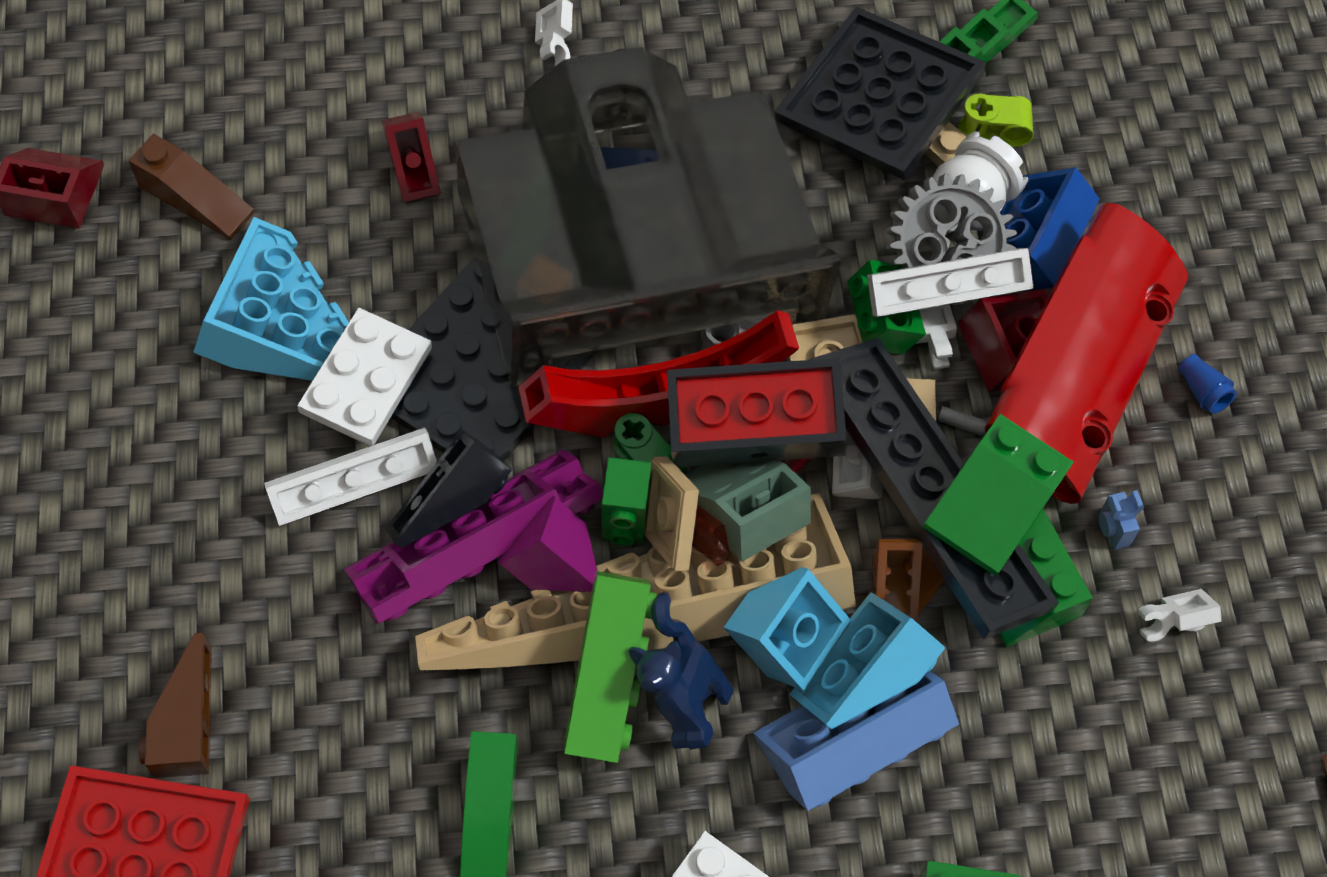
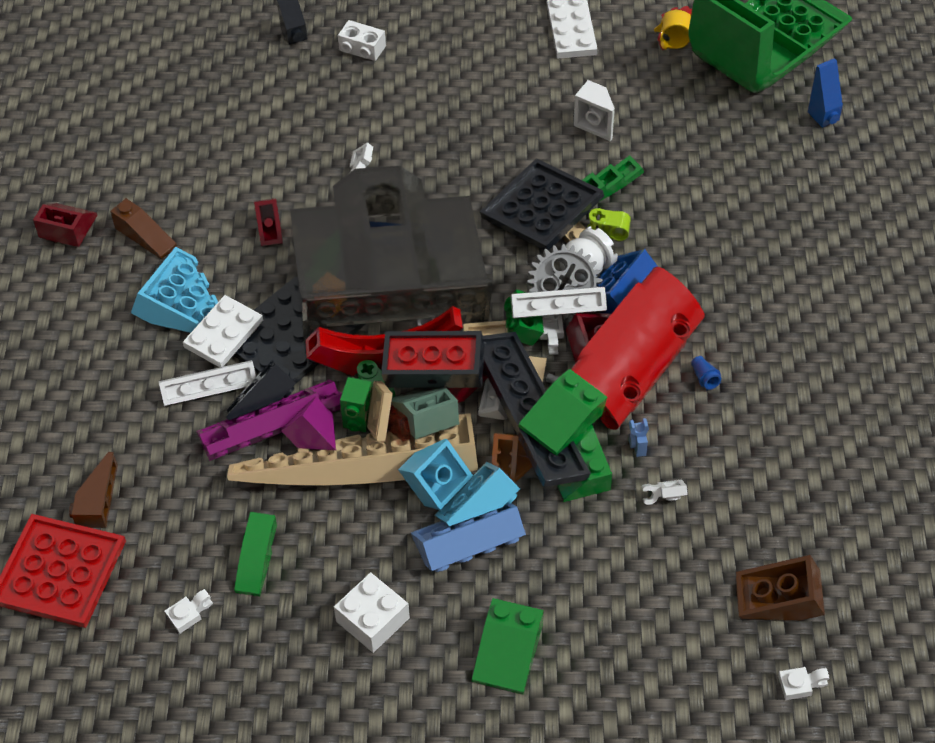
camera: 10 degrees right, 10 degrees down
(605, 669) = (330, 484): bright green brick -> none
(681, 678) = (370, 495): dark blue animal -> none

